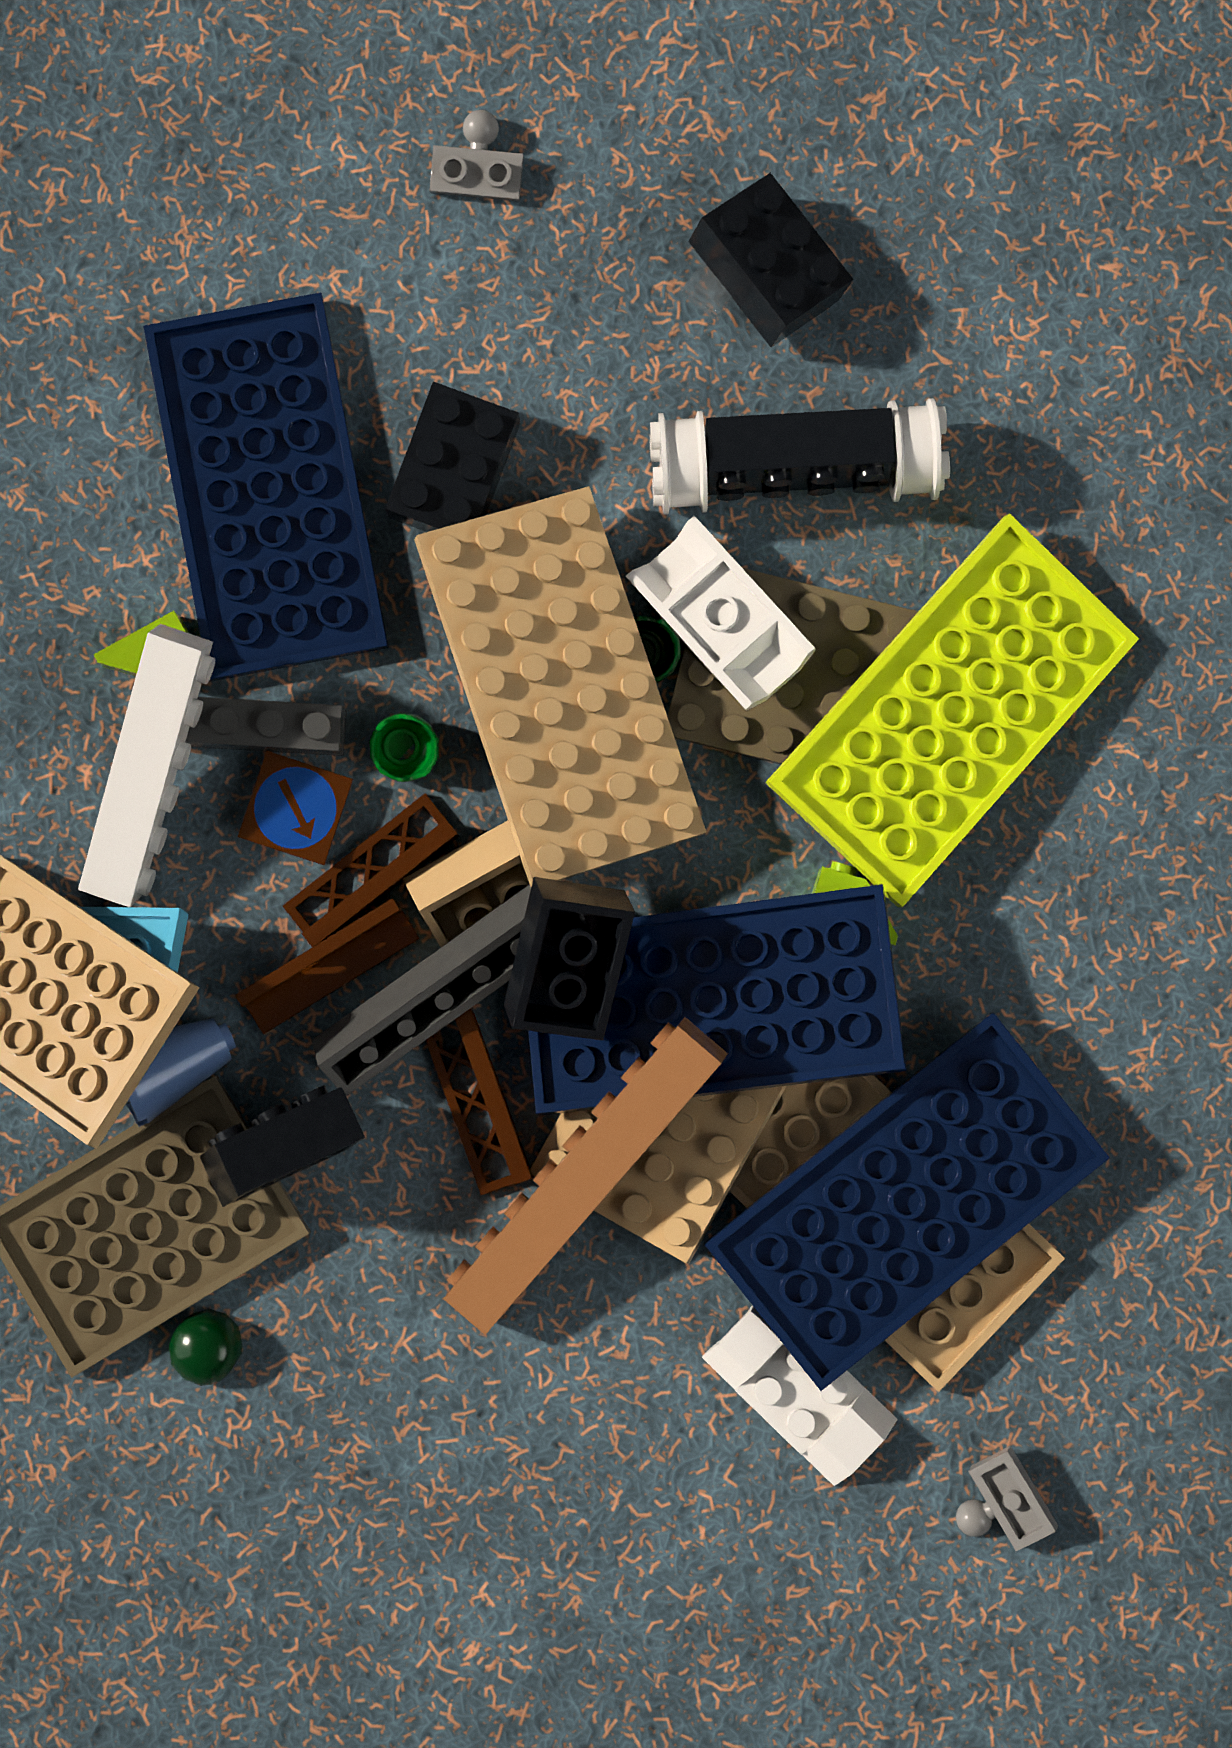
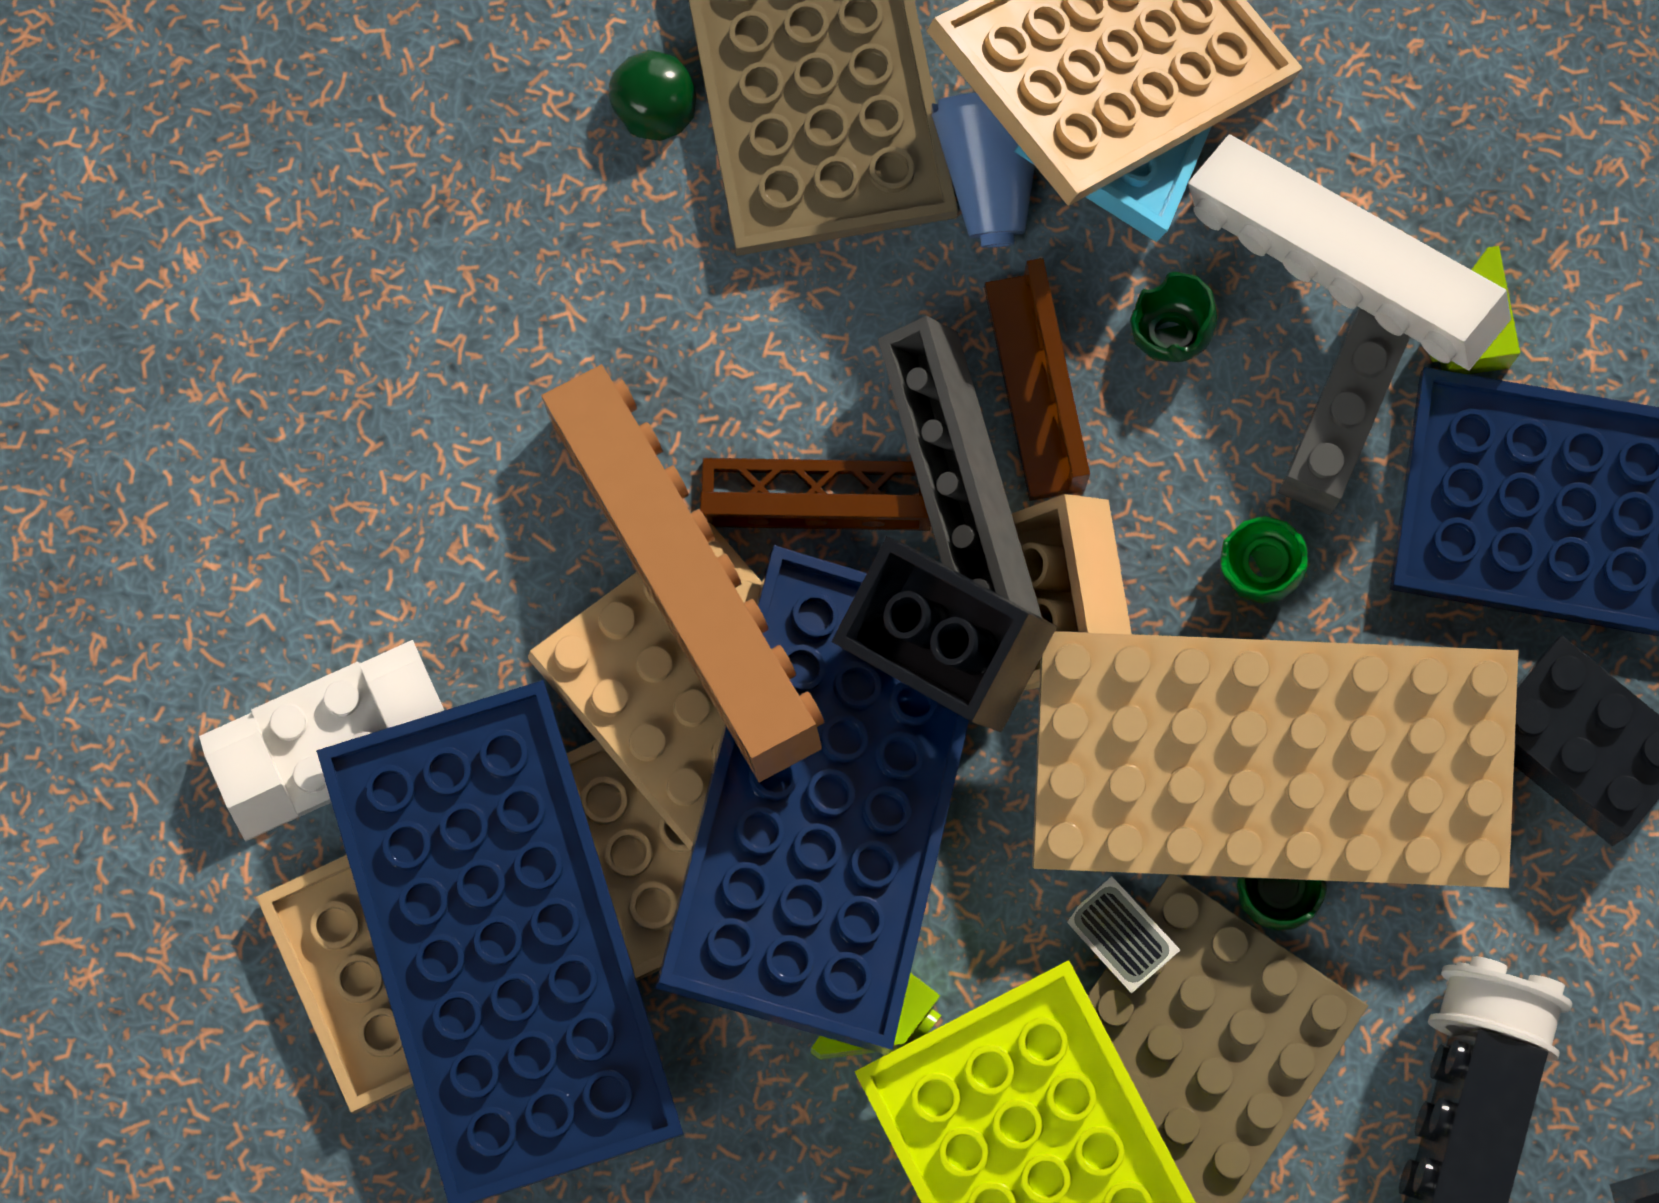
camera: 110 degrees right, 10 degrees down
(254, 870) = (1178, 300): none -> dark green hair
(280, 1144) = (851, 243): black brick -> none
(295, 808) = (1236, 411): piece -> none
(382, 882) = (1113, 479): reddish brown fence -> none
(723, 615) = (1290, 990): white piece -> none
(724, 752) = (1122, 934): none -> sticker
(1009, 1499) = (97, 933): light grey plate -> none

